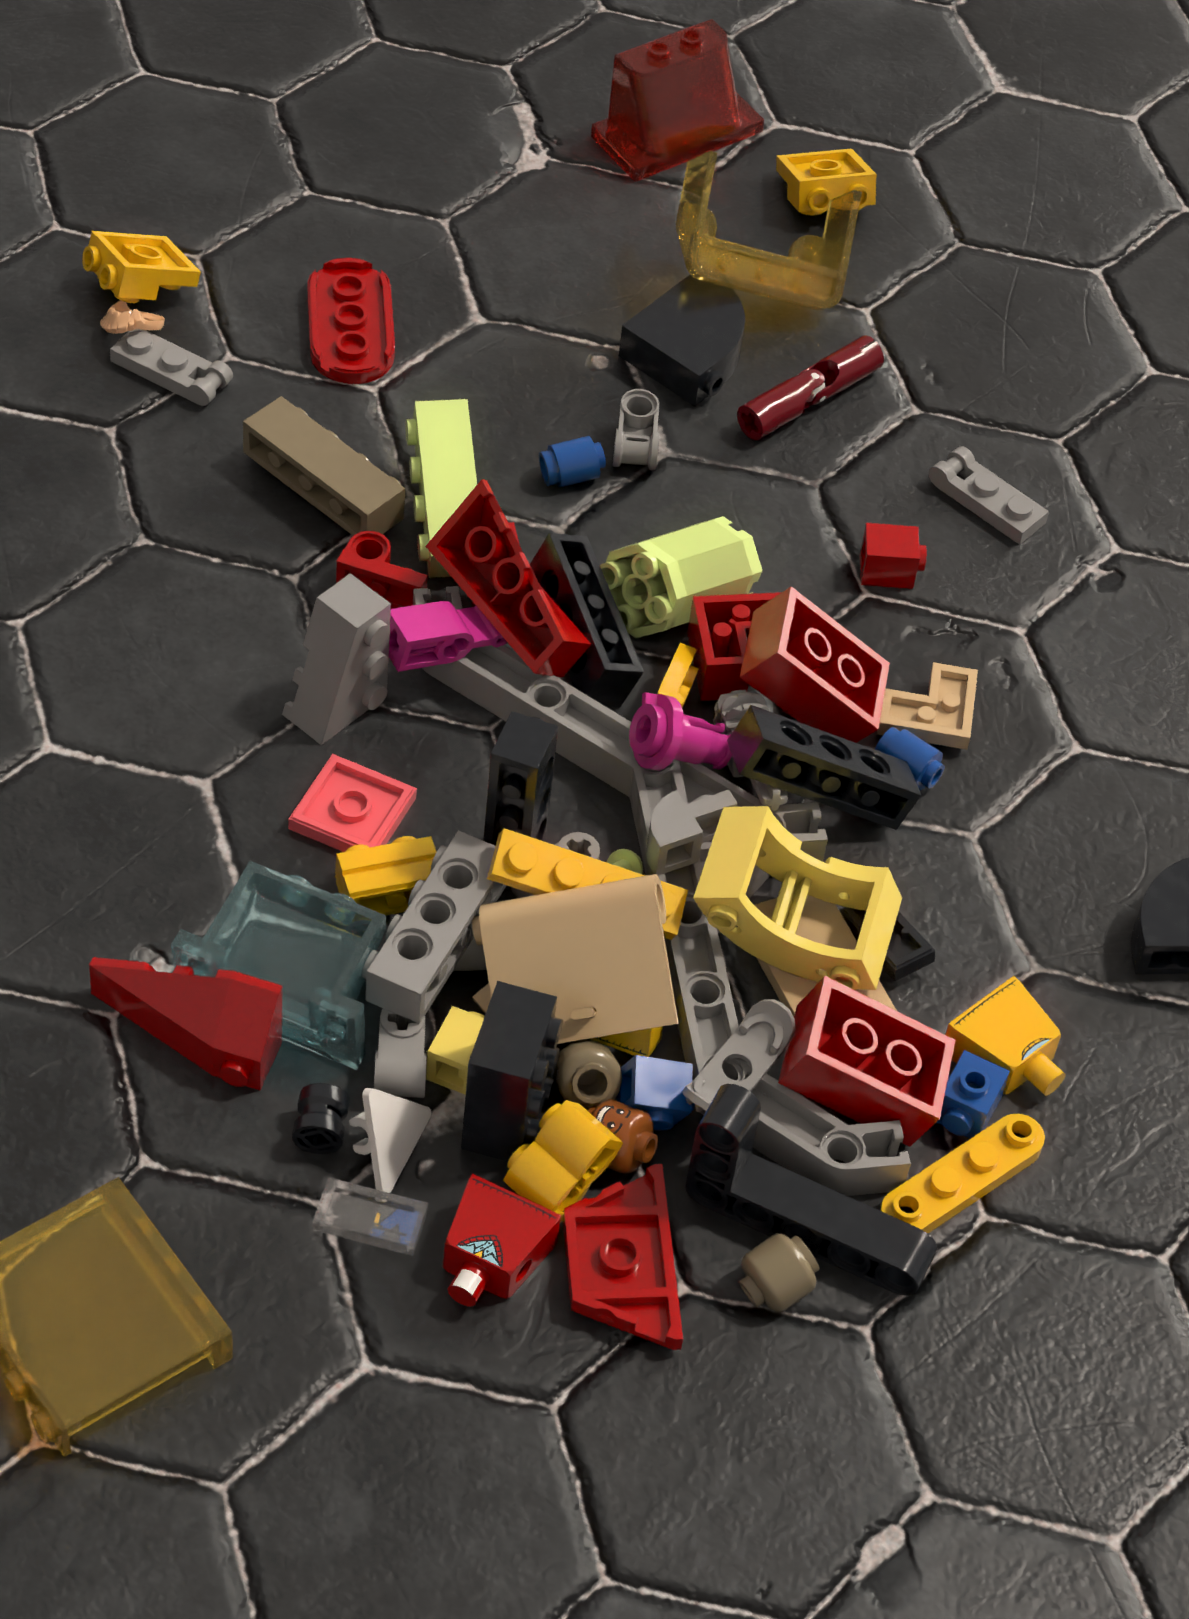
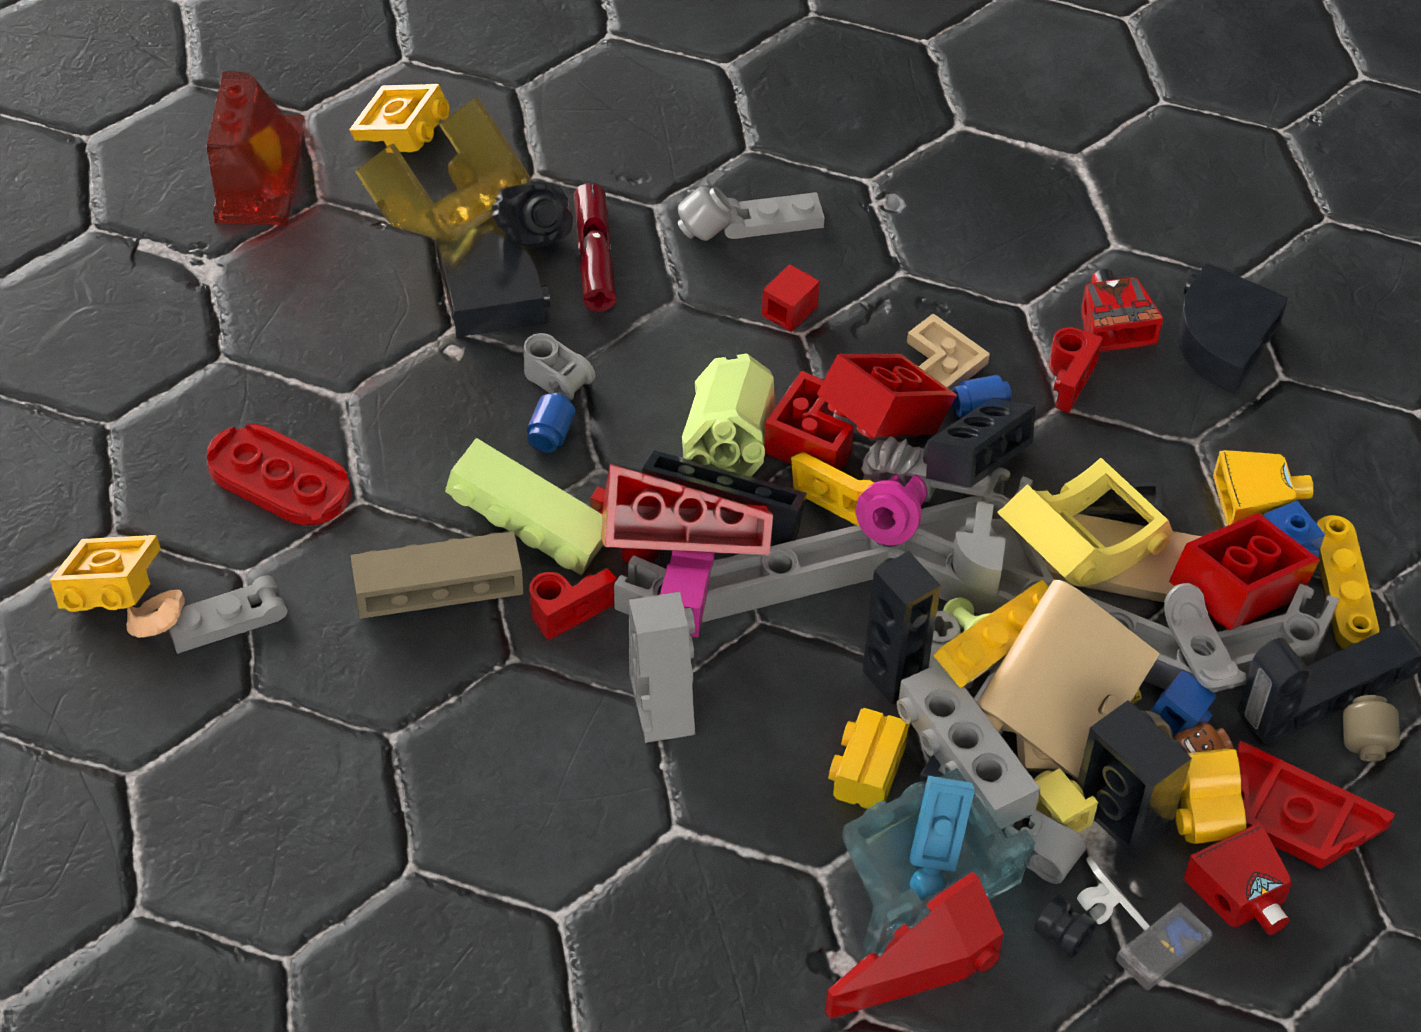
camera: 50 degrees left, 0 degrees up
(316, 943) = (939, 832): none -> dark azure plate
(351, 806) = (776, 748): coral tile -> none
(783, 312) = (533, 213): none -> black hair
(927, 439) = (704, 213): none -> light grey head
(1034, 816) = (1073, 361): none -> red plate
(1128, 817) = (1120, 312): none -> red torso

